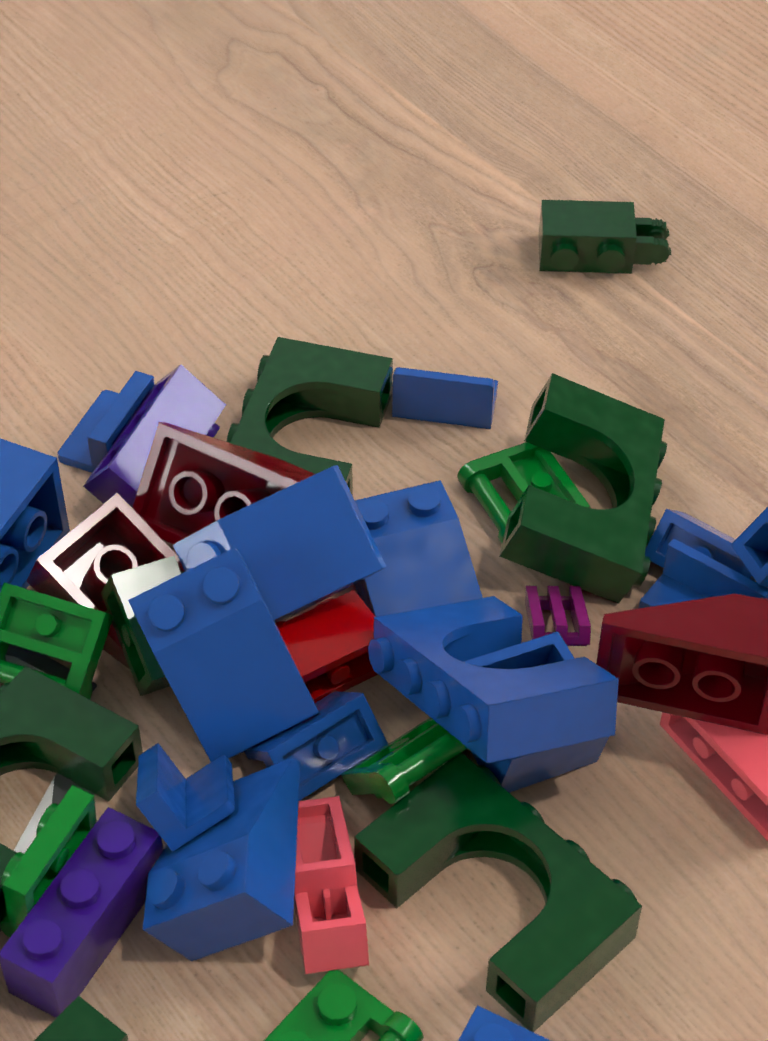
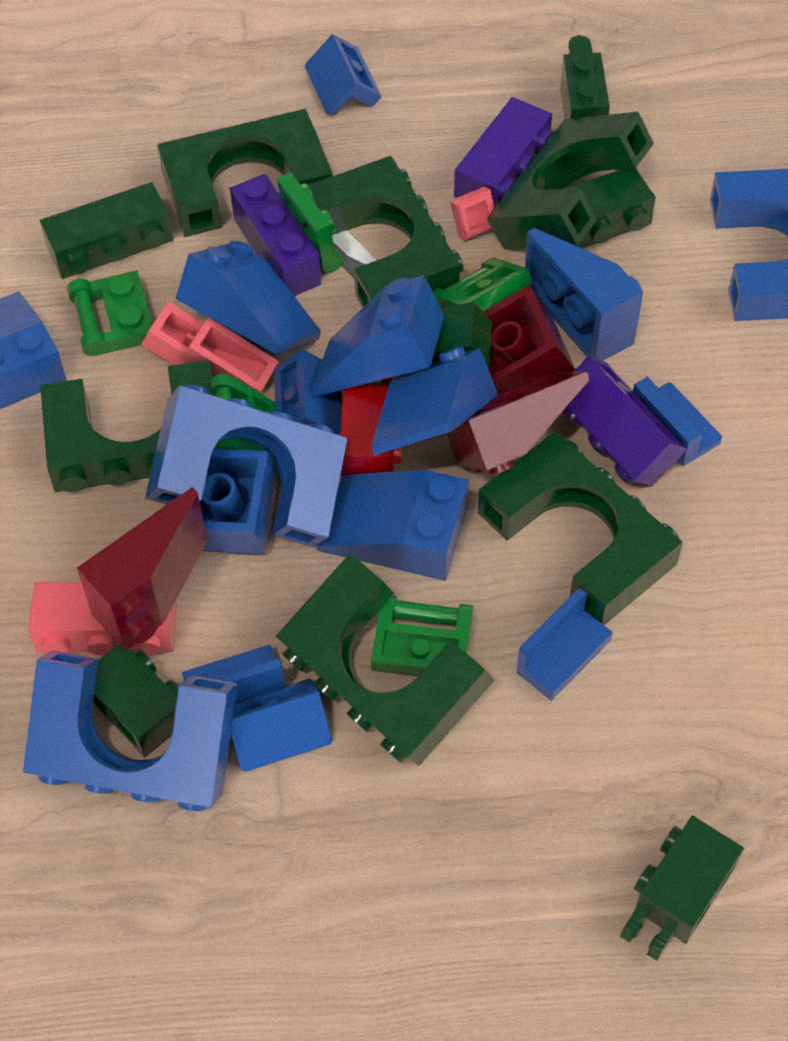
camera: 125 degrees right, 10 degrees up
(180, 805) = (306, 294): blue panel -> none
(557, 605) = (295, 556): magenta tile -> none

